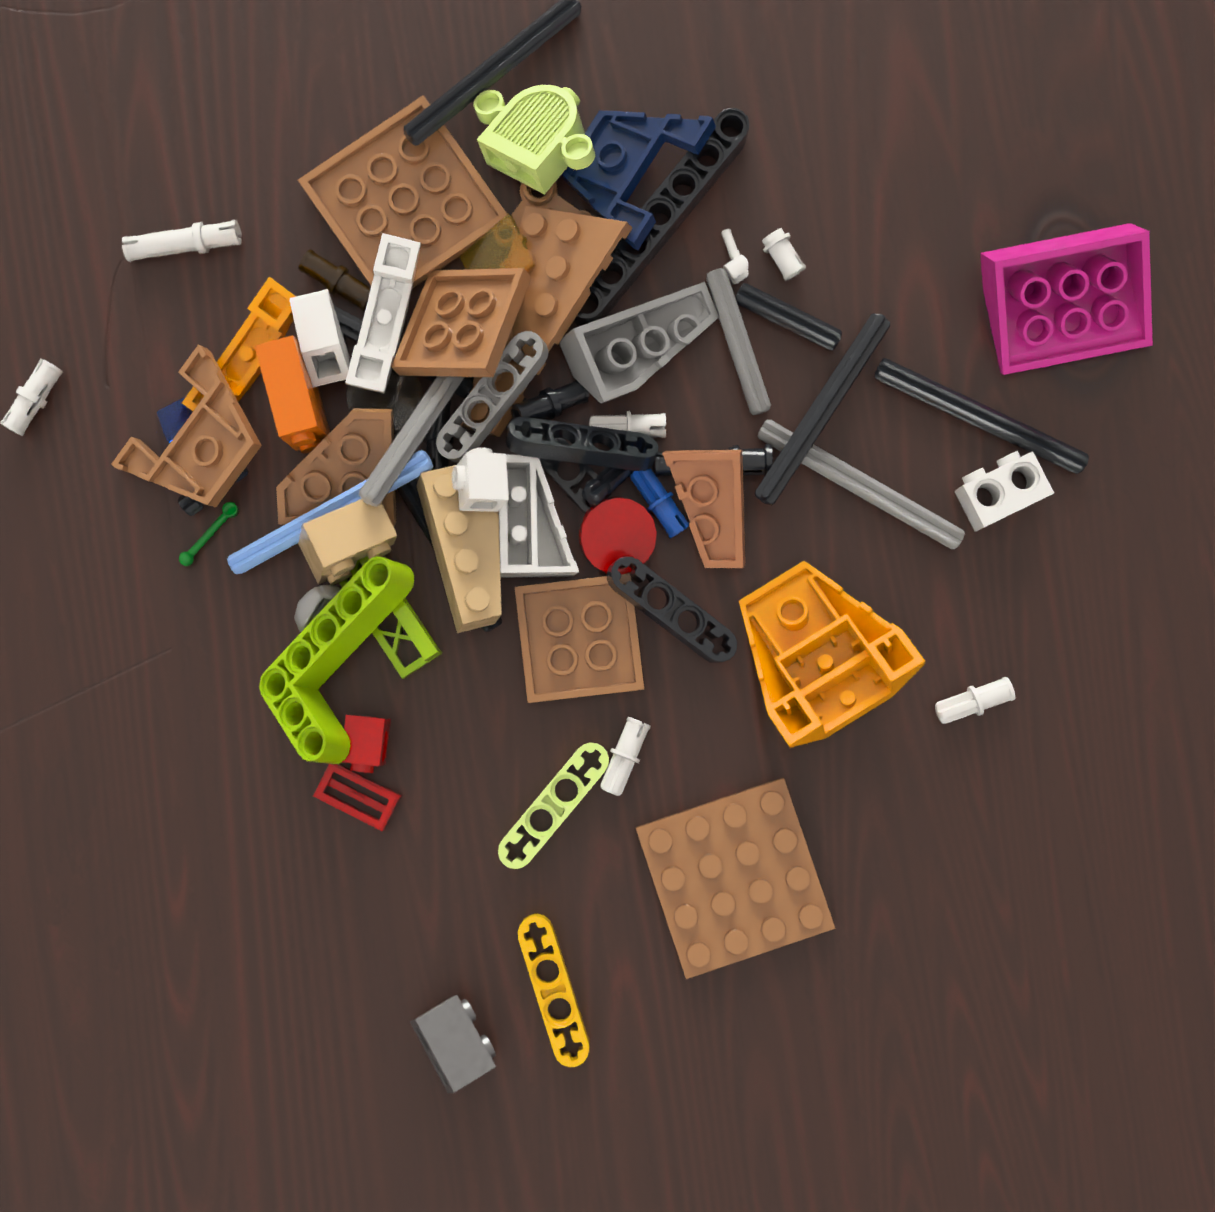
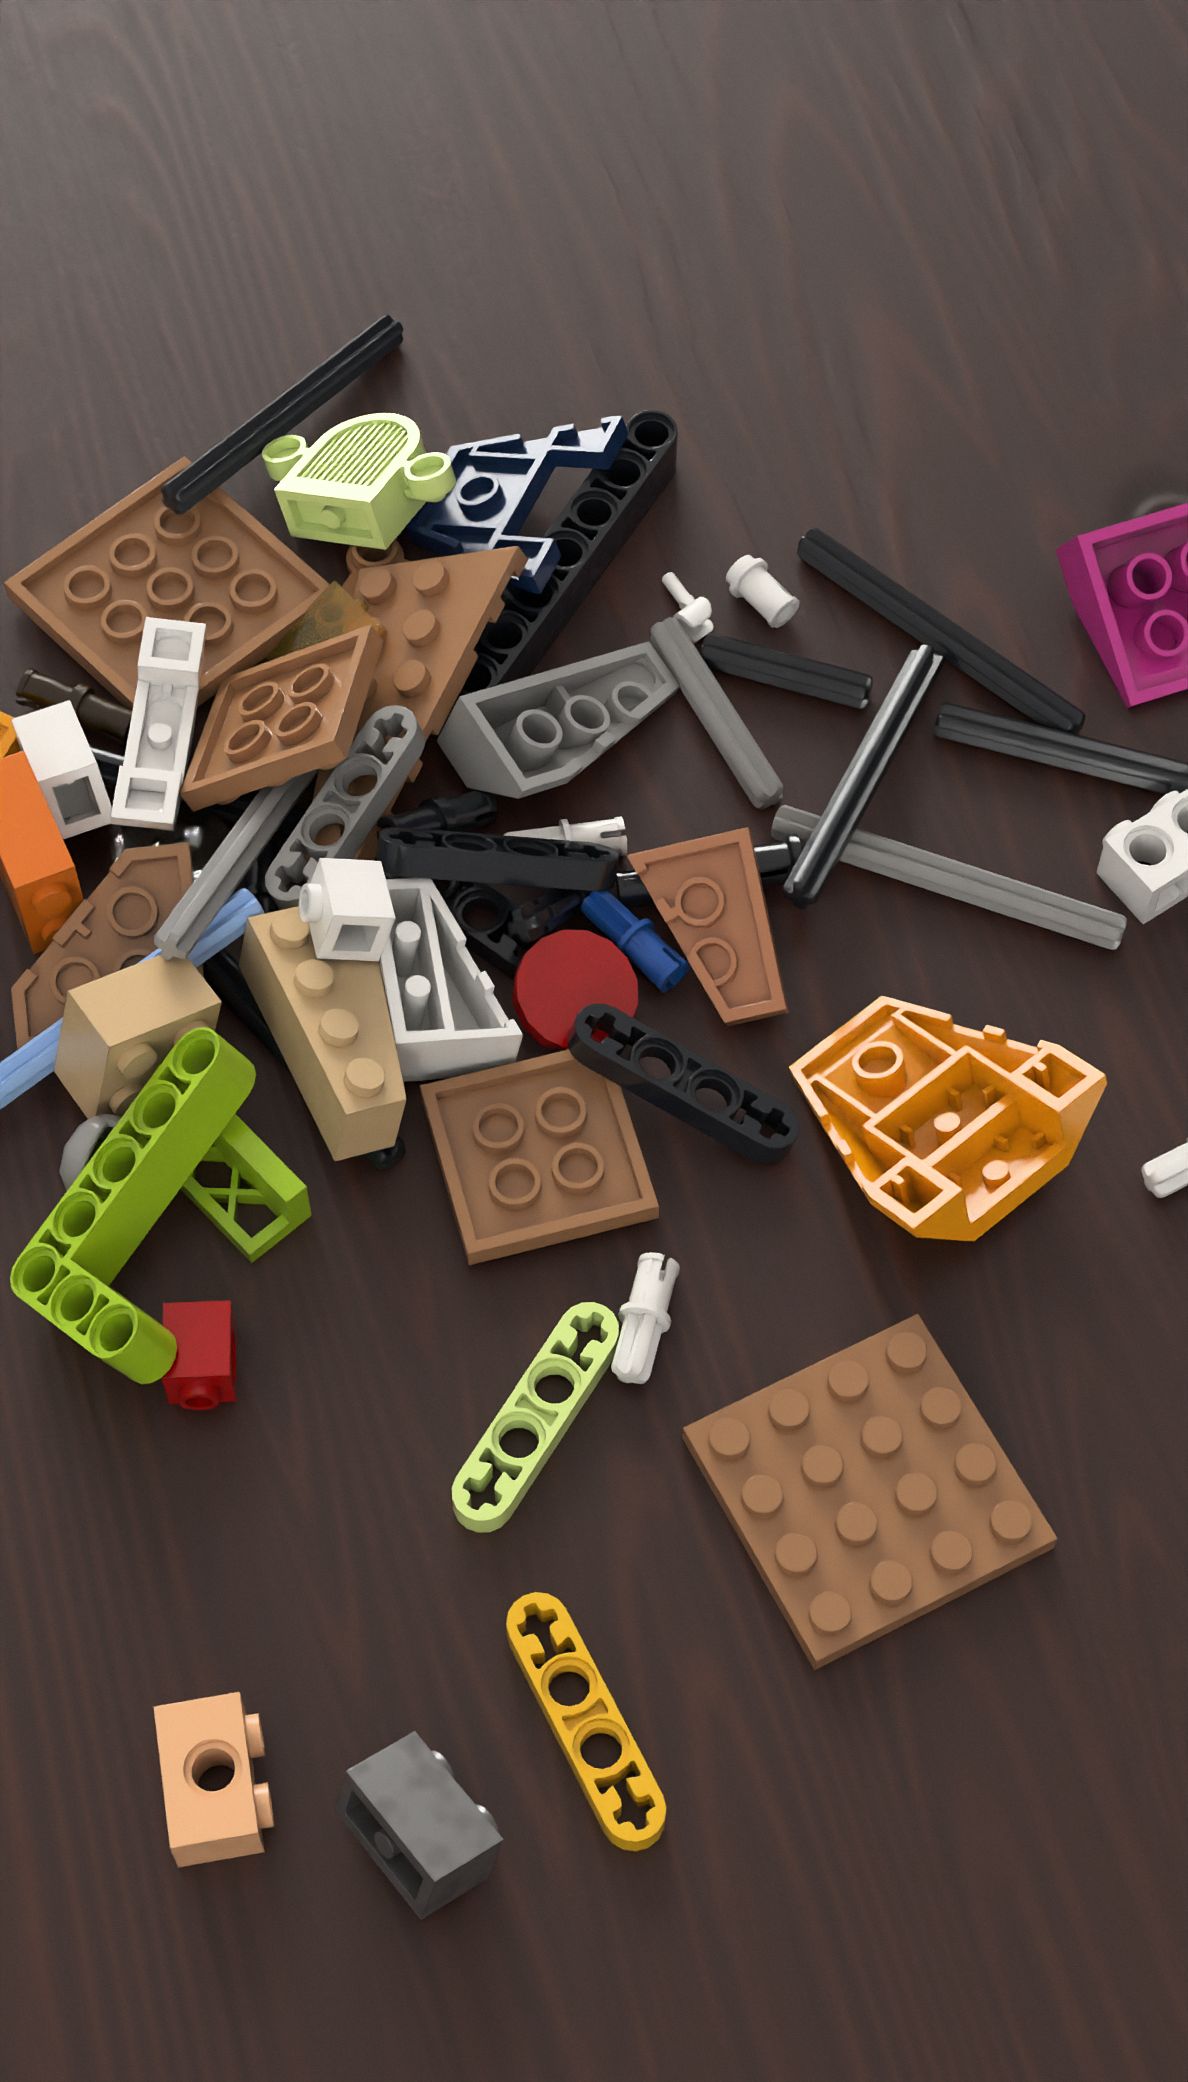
camera: 15 degrees left, 25 degrees down
(333, 1017) = (193, 1739): none -> light nougat brick
(386, 810) = (186, 1476): red tile -> none
(891, 302) = (937, 630): none -> black axle

